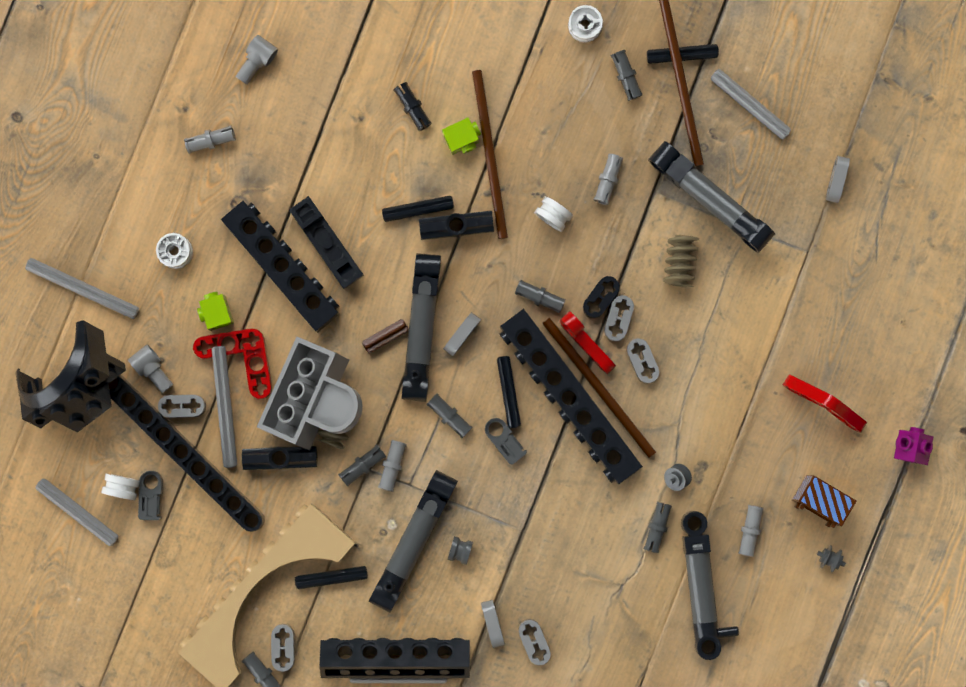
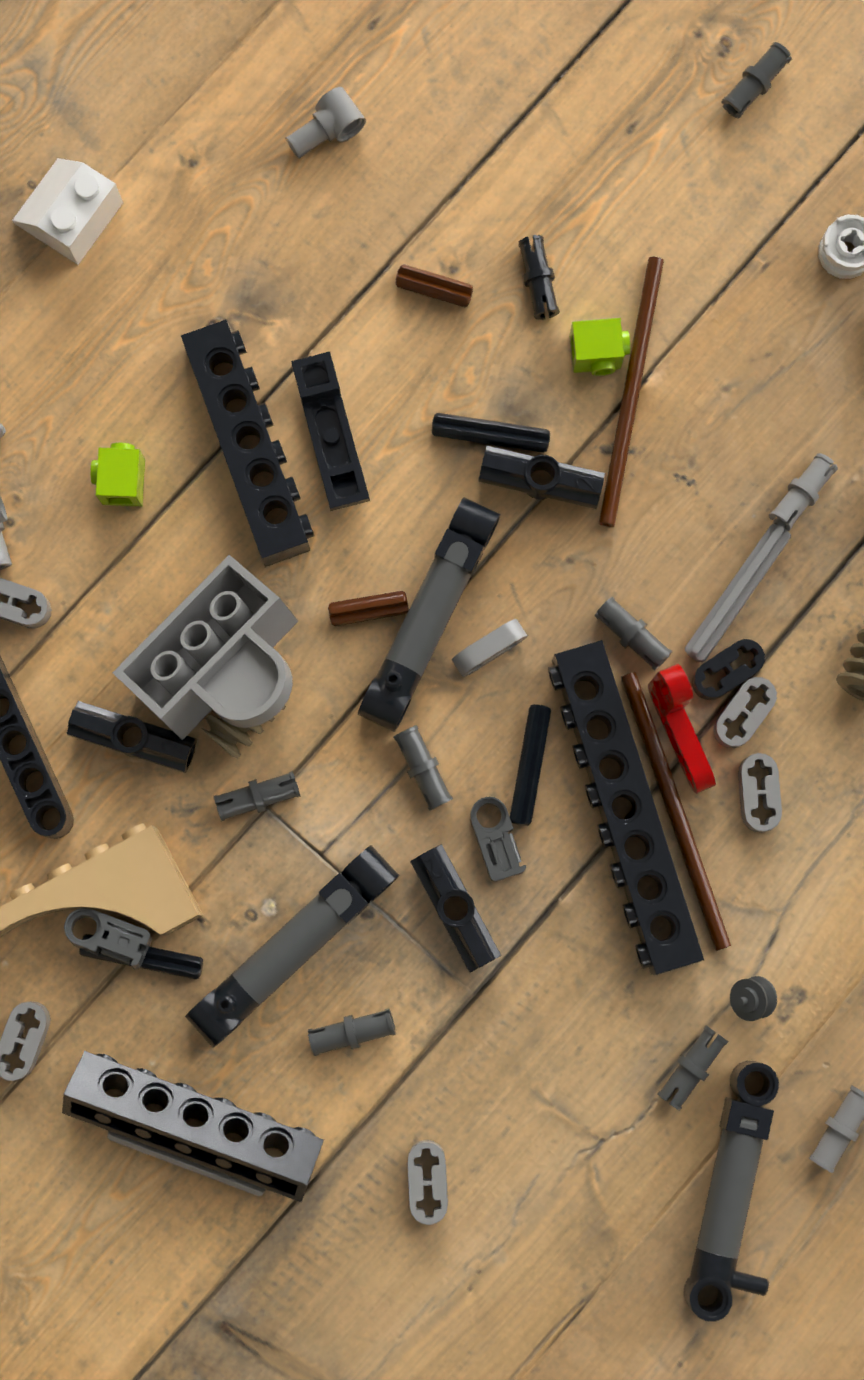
camera: 15 degrees right, 5 degrees down
(124, 164) = (70, 208): none -> white slope
(167, 243) = (86, 348): white wheel -> none
(210, 139) = (211, 216): light grey pin -> none
(224, 406) = (76, 626): light grey axle -> none
(249, 353) = (147, 557): red beam -> none
(311, 572) = (112, 936): none -> dark grey piece
(353, 133) = (434, 285): none -> reddish brown axle
(392, 465) = (304, 813): light grey pin -> none
(460, 550) = (362, 988): dark grey wheel -> none
(463, 576) = (351, 1032): none -> dark grey pin
(492, 624) = (371, 1127): light grey beam -> none
(508, 499) = (442, 883): none -> black piece
(553, 214) = (700, 513): white wheel -> none
(591, 251) = (737, 593): none -> light grey axle

